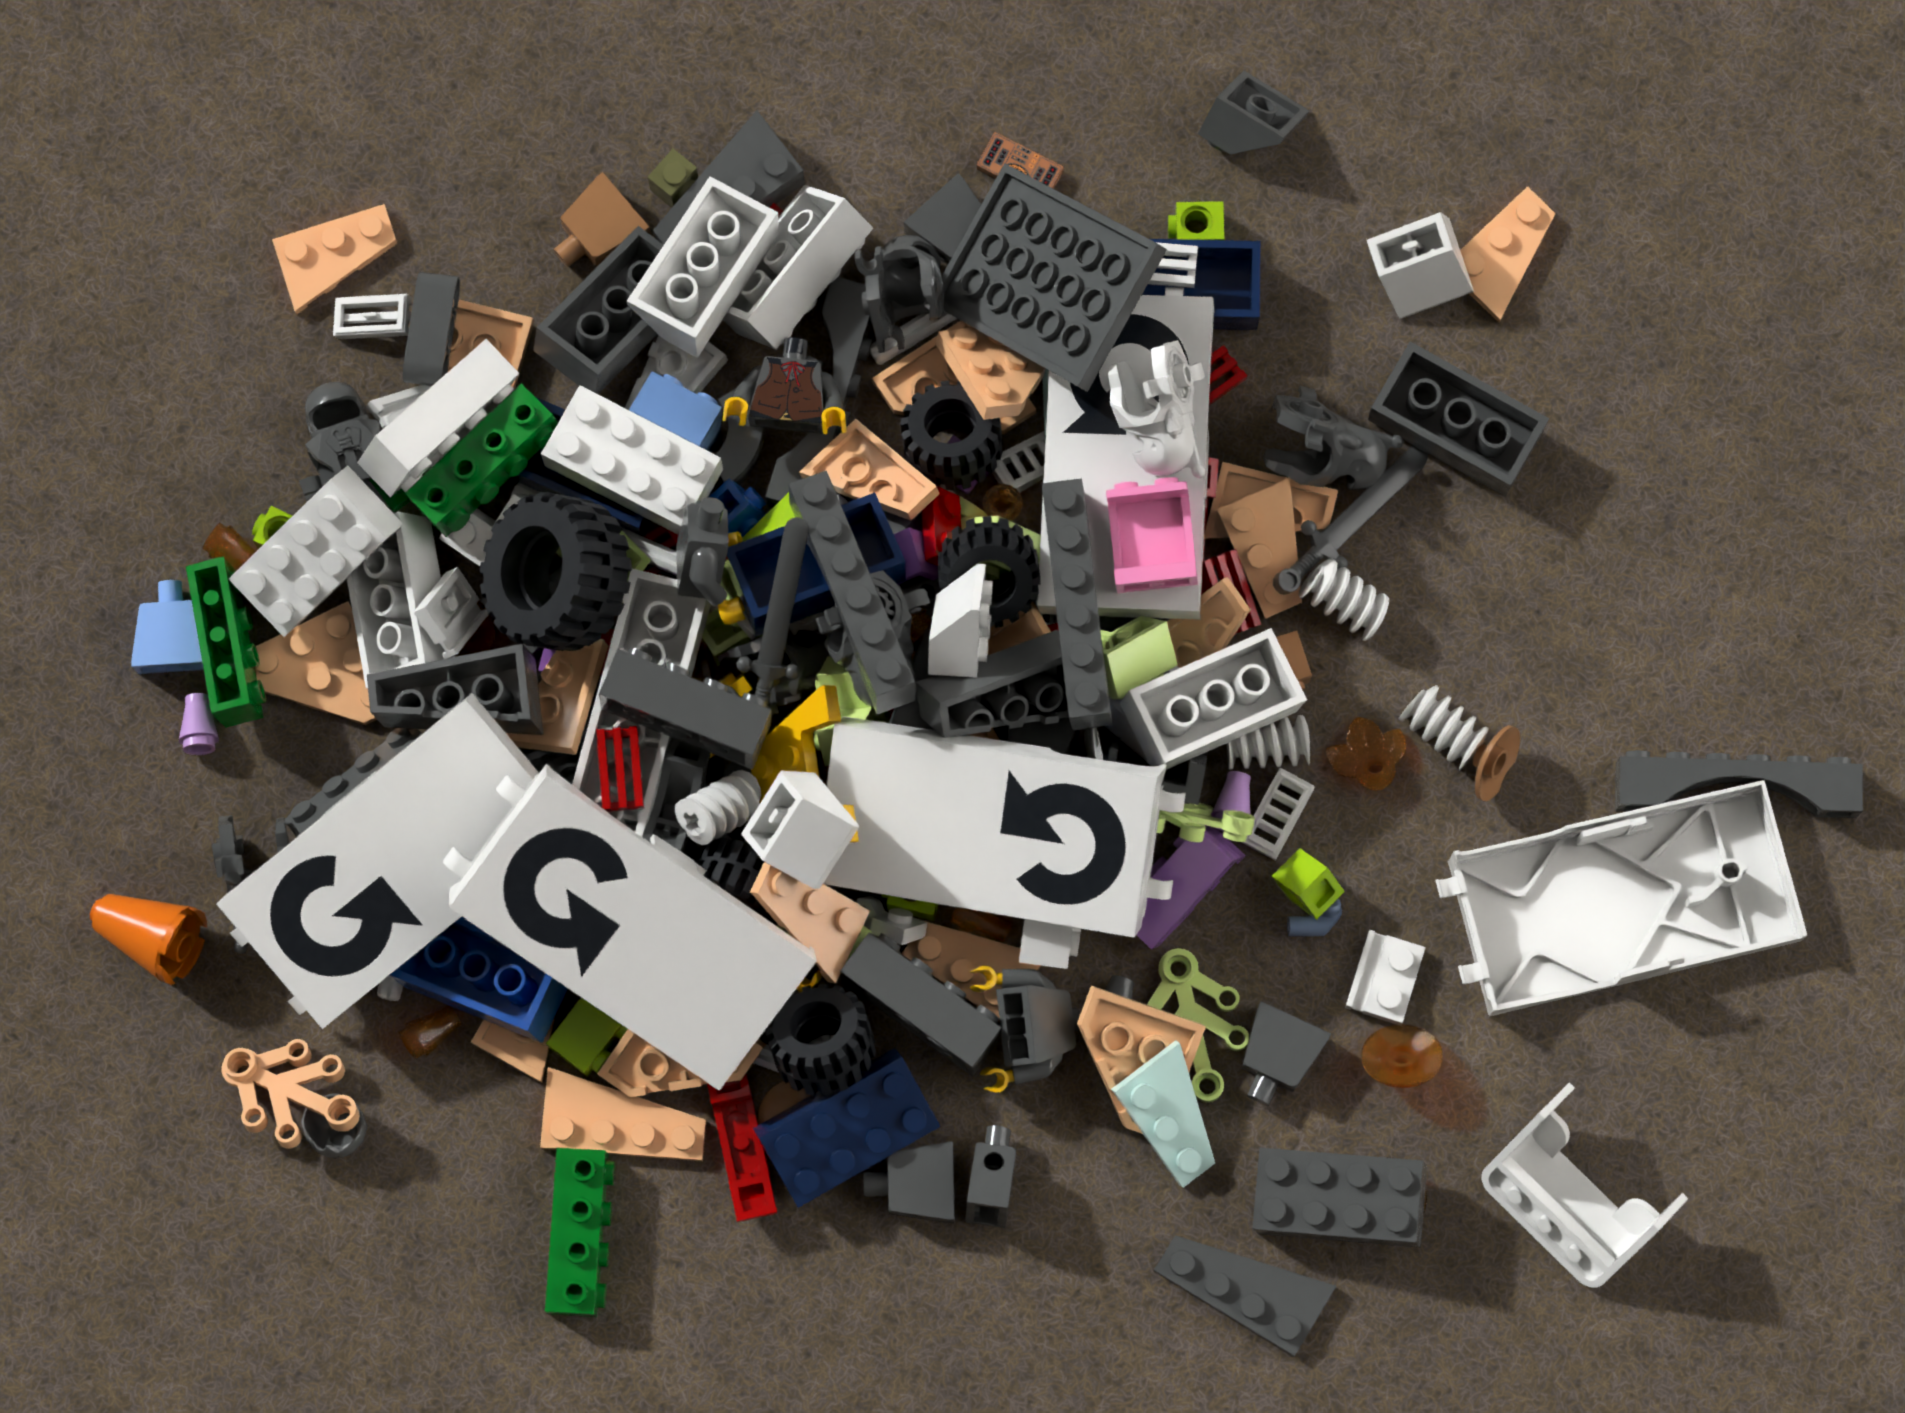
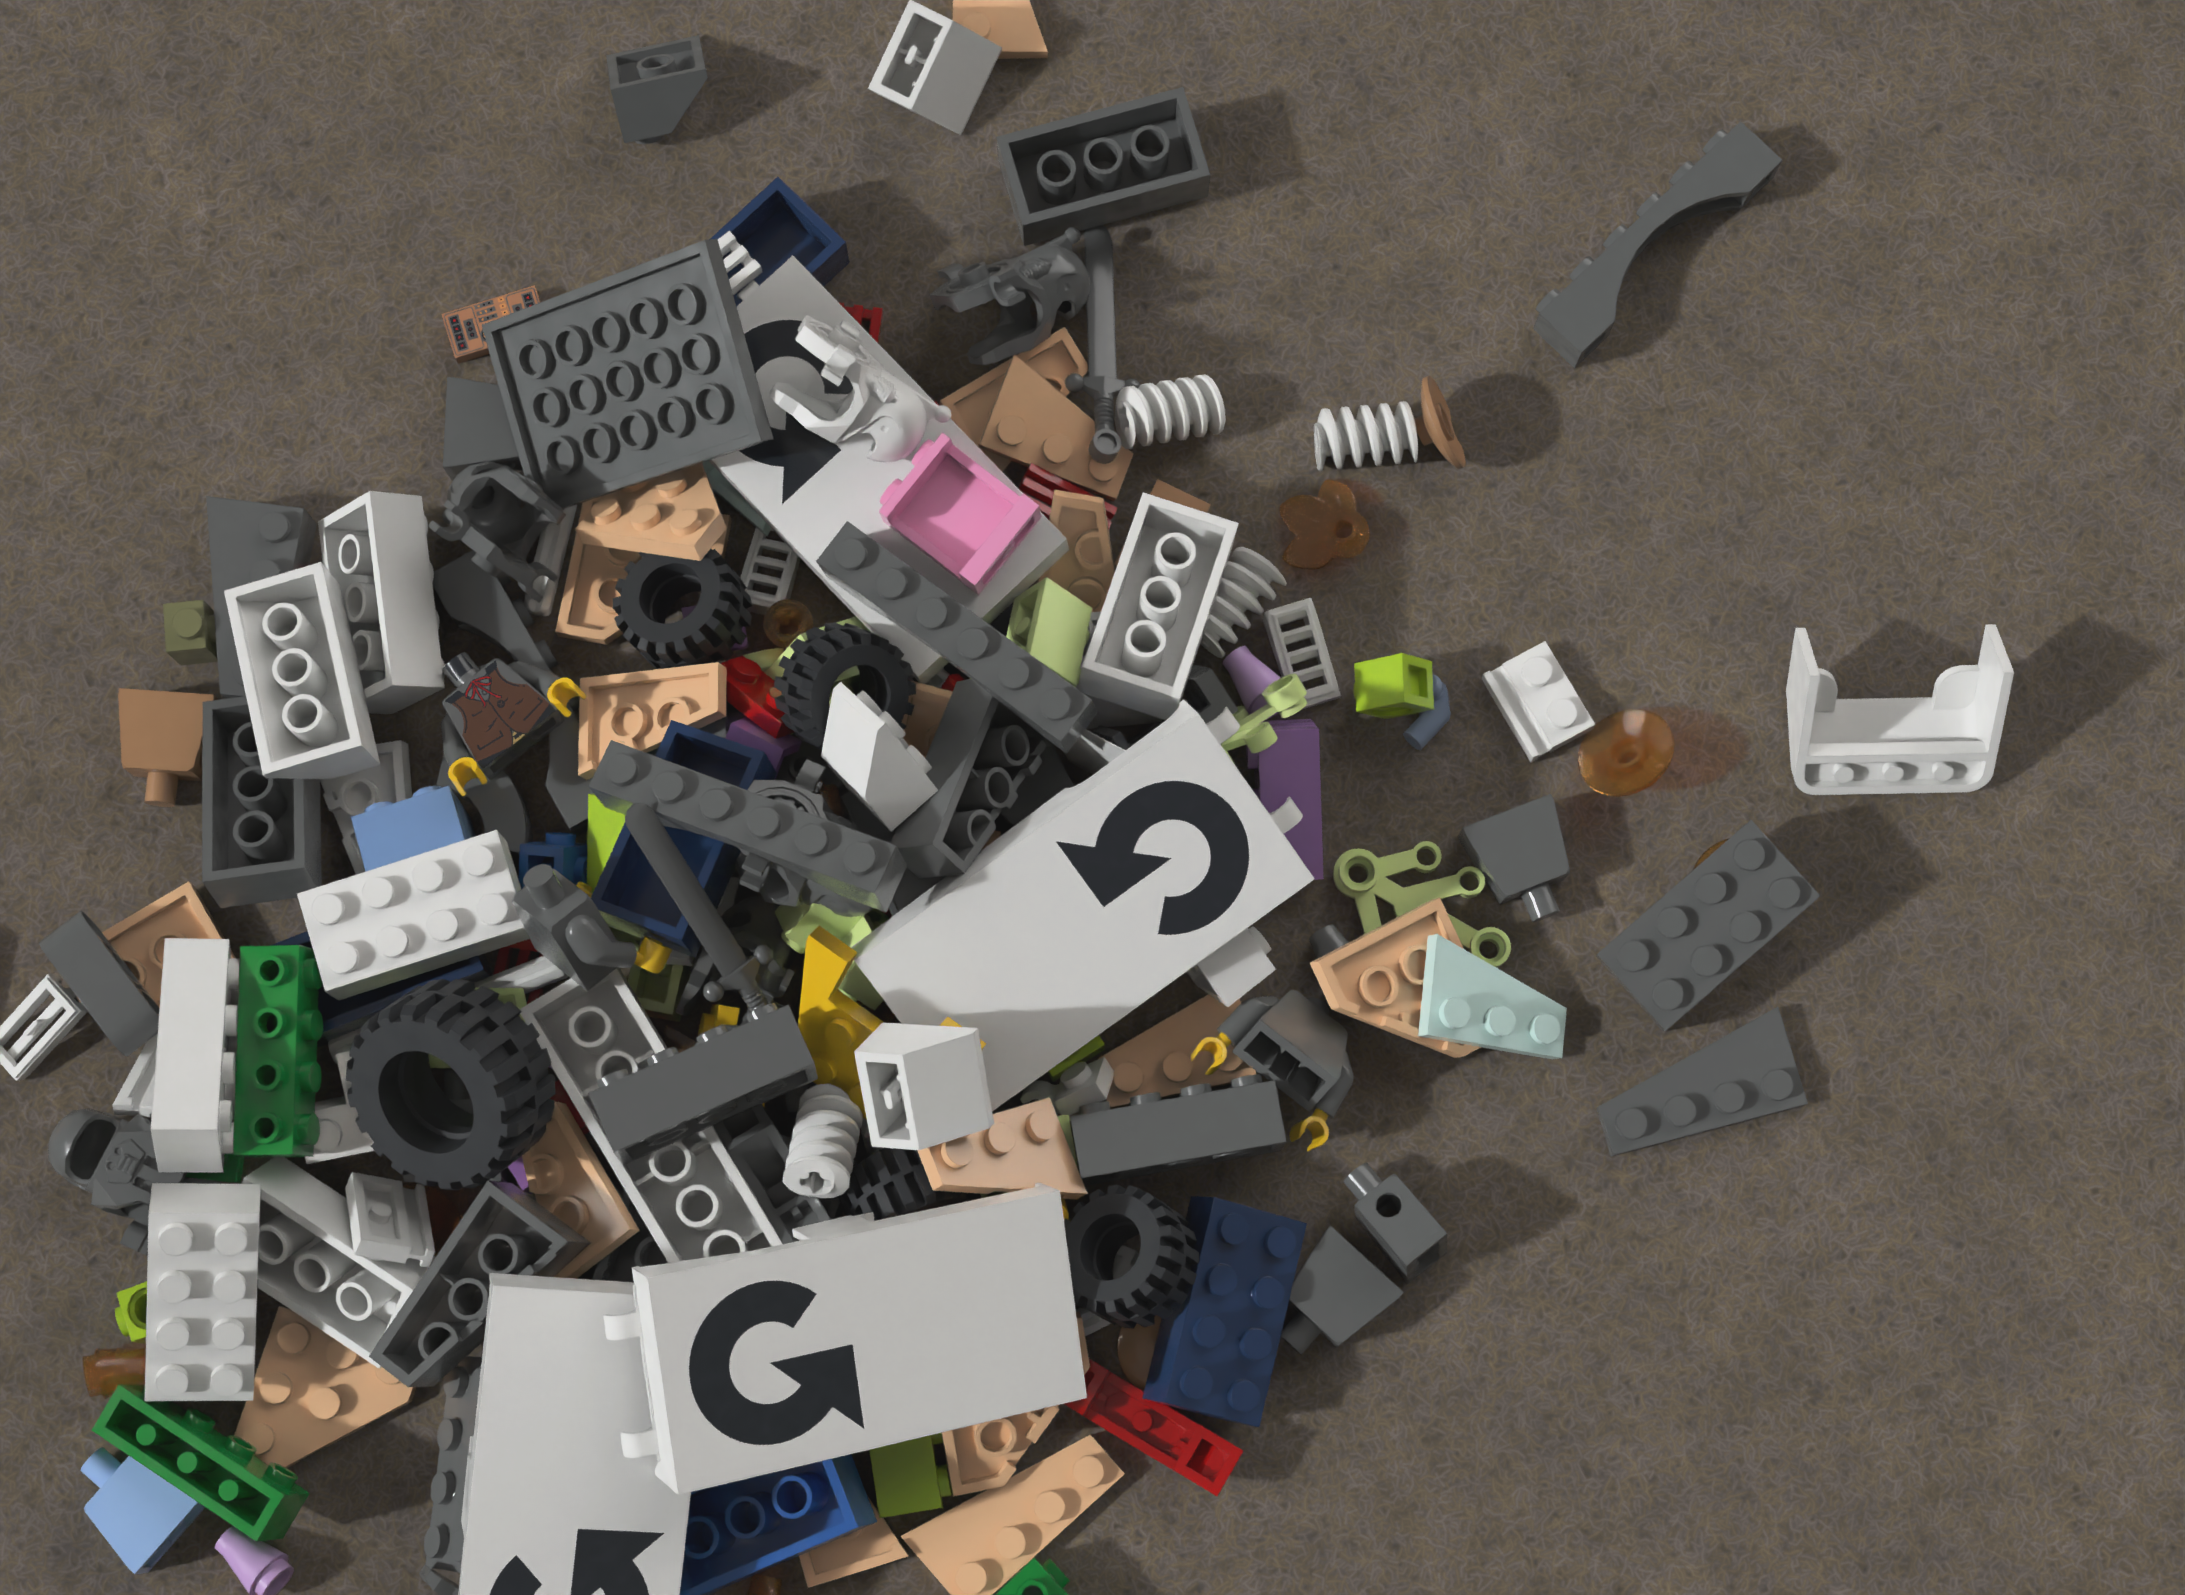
camera: 50 degrees left, 0 degrees up
(617, 734) = (663, 1172): red tile -> none
(981, 923) = (1152, 1011): clear orange cone -> none
(1207, 212) = (704, 202): lime brick -> none
(1625, 898) = (1665, 431): white piece -> none

